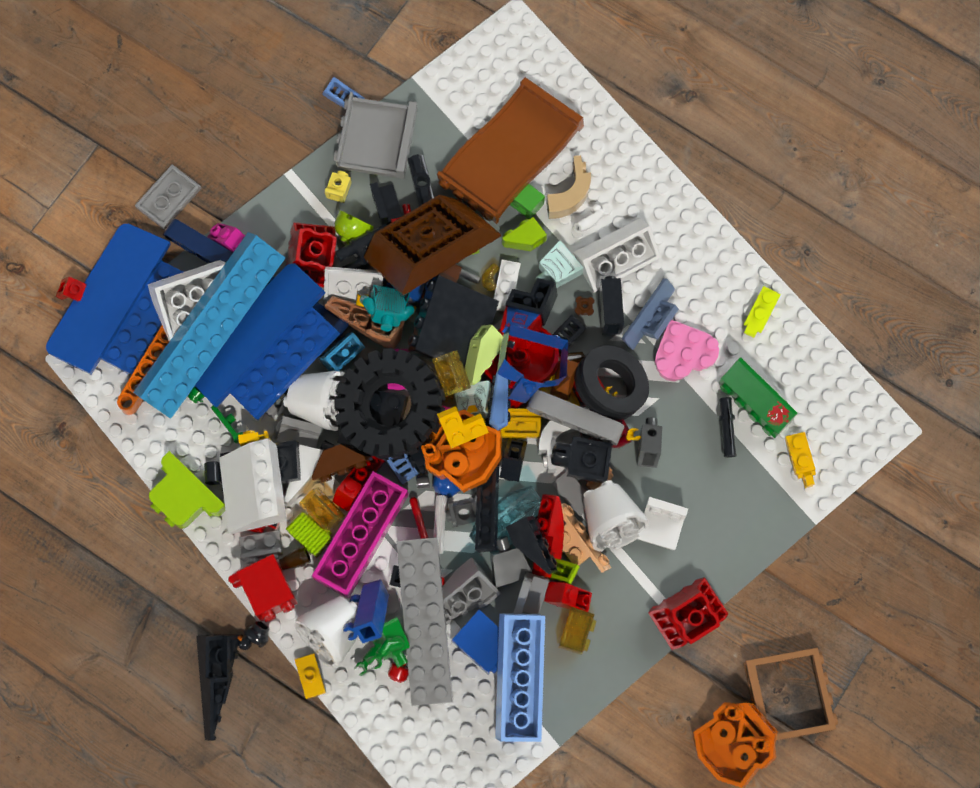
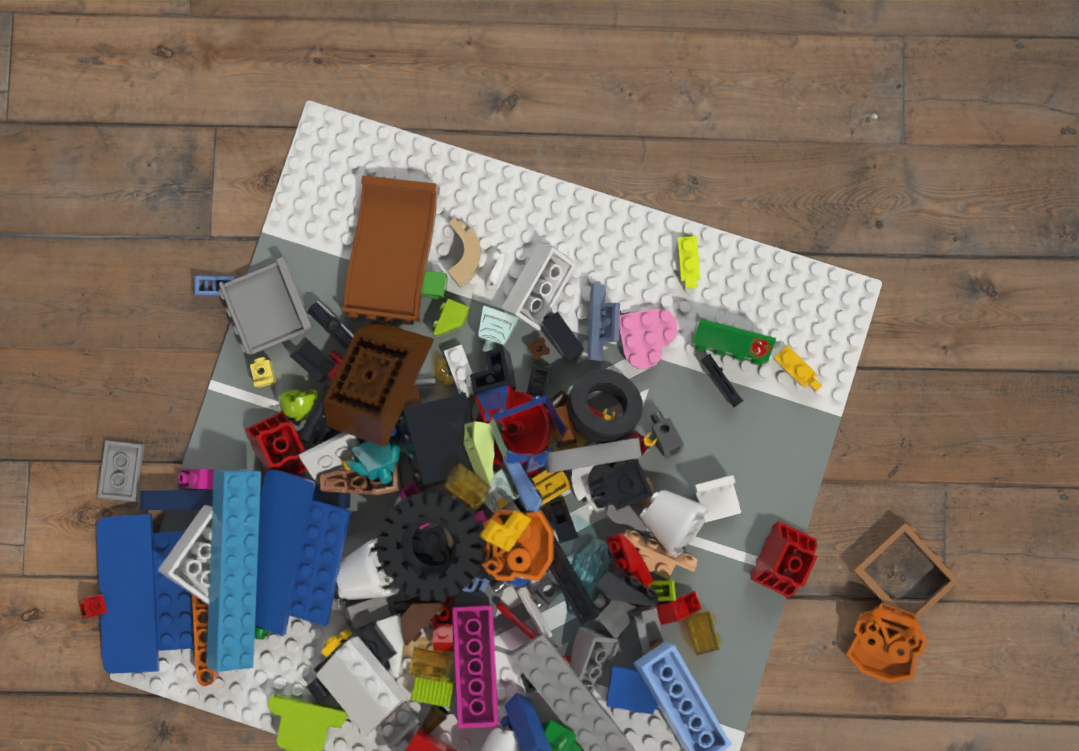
camera: 25 degrees left, 10 degrees up
(226, 421) = (301, 638): green piece -> none
(342, 352) = (361, 519): dark azure brick -> none

